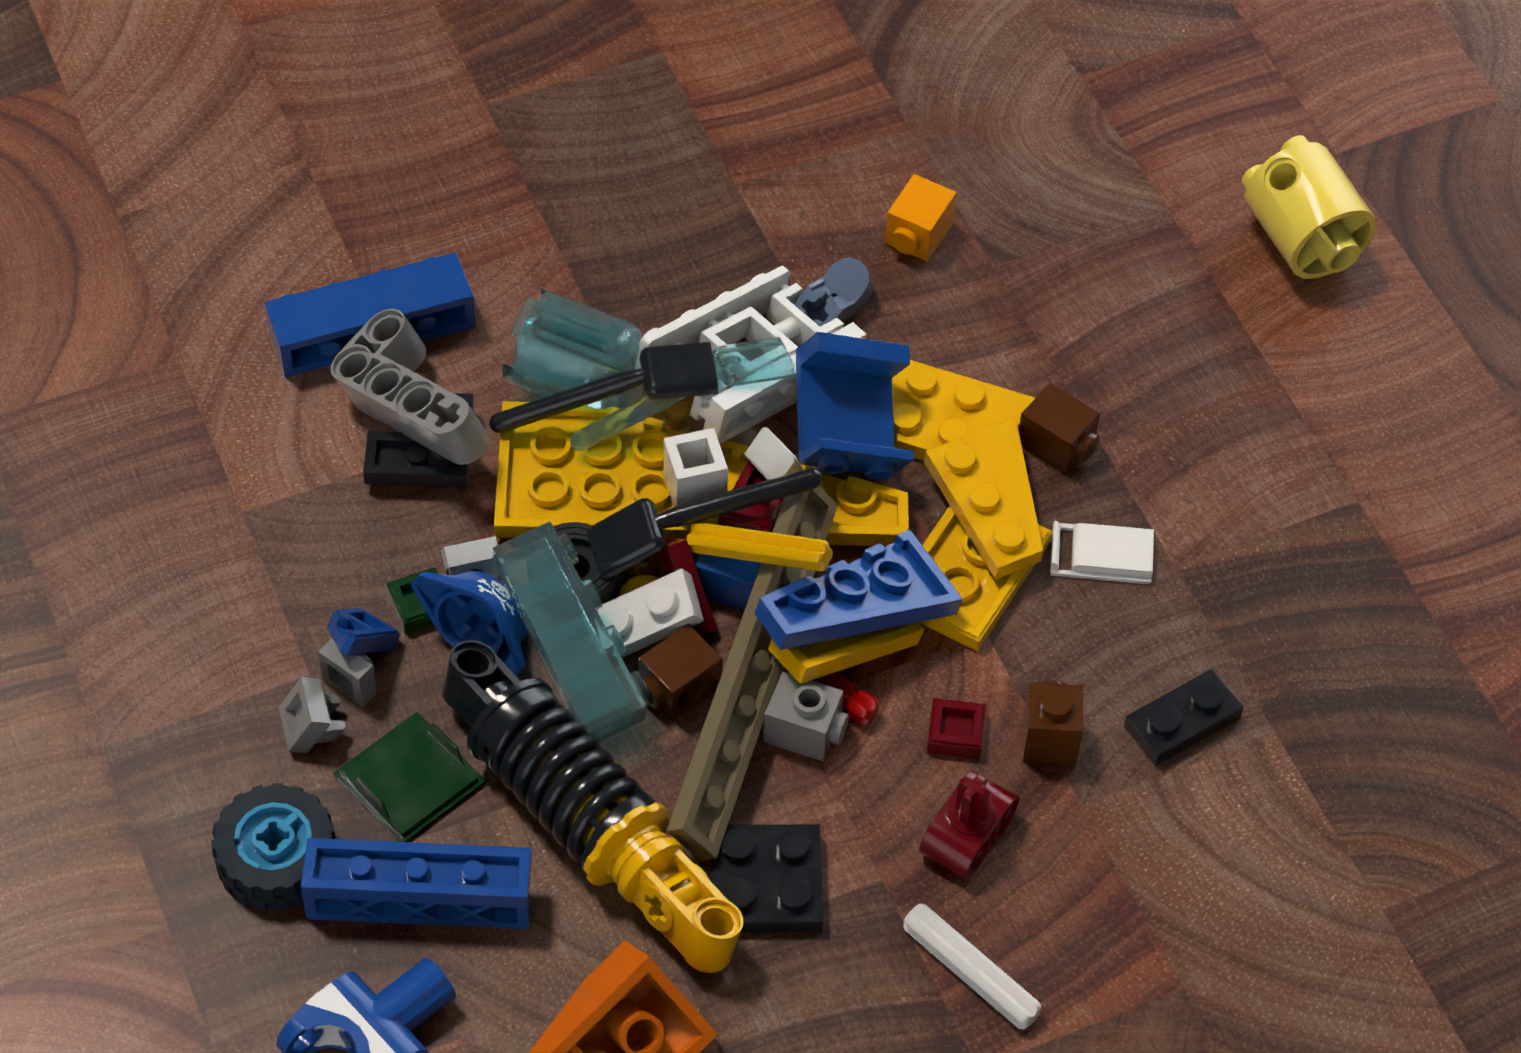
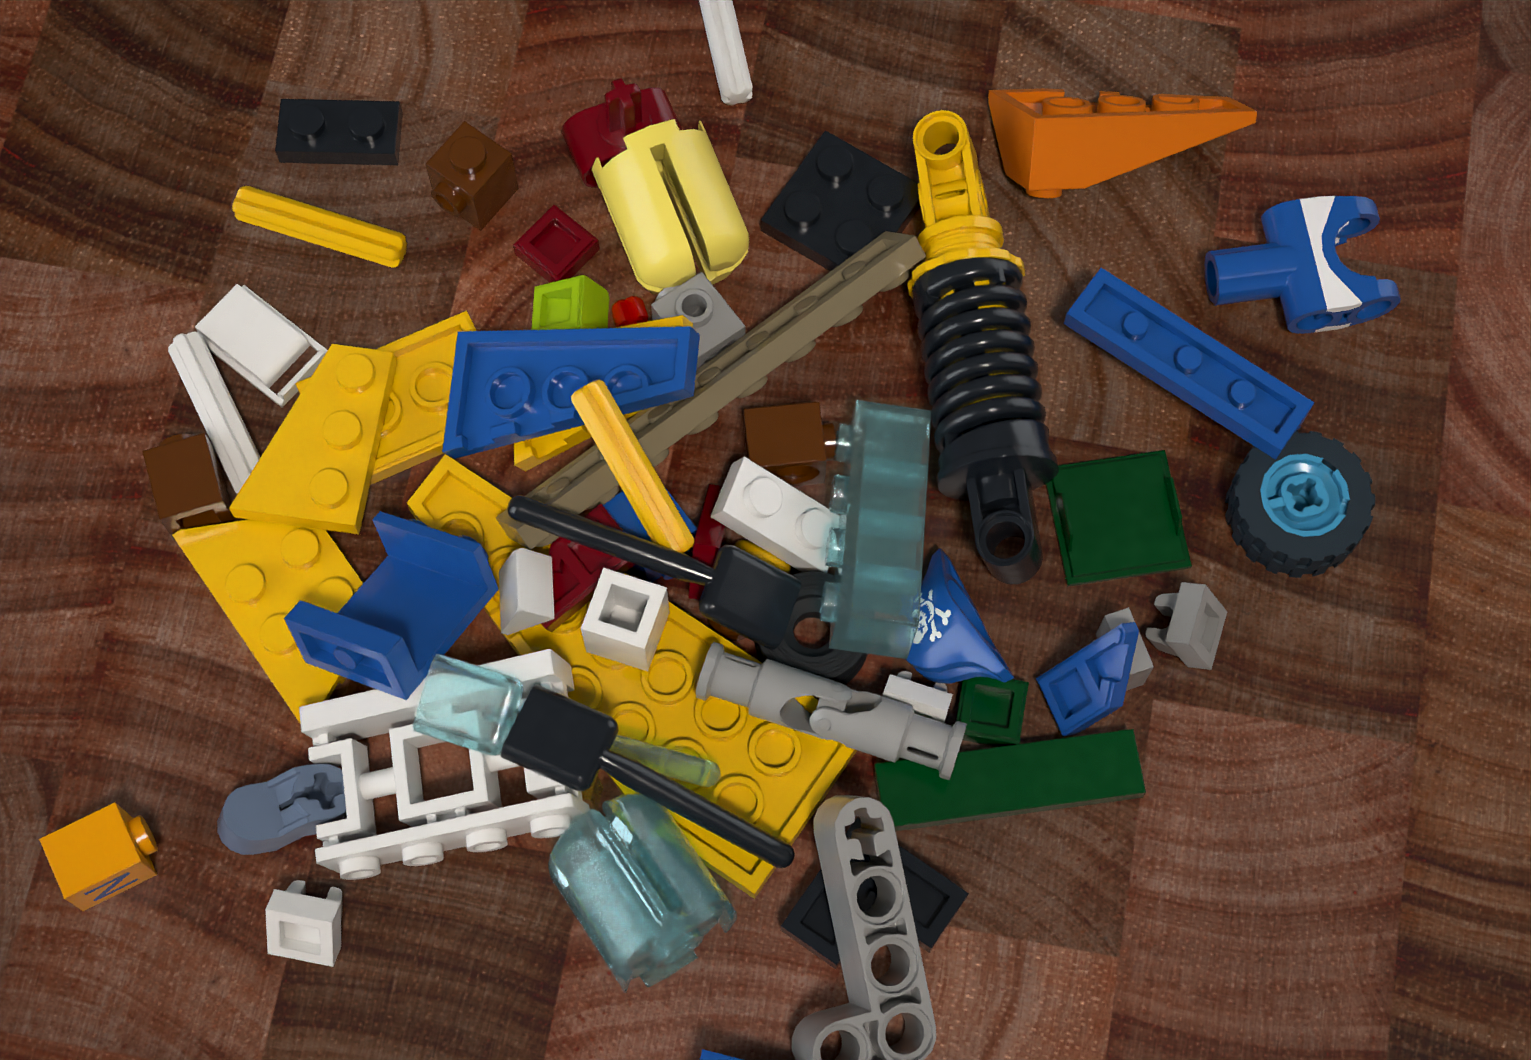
camera: 145 degrees left, 15 degrees up
(382, 558) = (1013, 780): none -> dark green tile
(558, 500) = (842, 714): none -> light grey piece
(771, 247) = (304, 925): none -> white tile
(882, 772) = (672, 204): none -> light yellow cylinder
(905, 688) = (570, 305): none -> lime slope
(1089, 489) = (215, 407): none -> white axle
(1133, 642) = (319, 226): none -> yellow axle

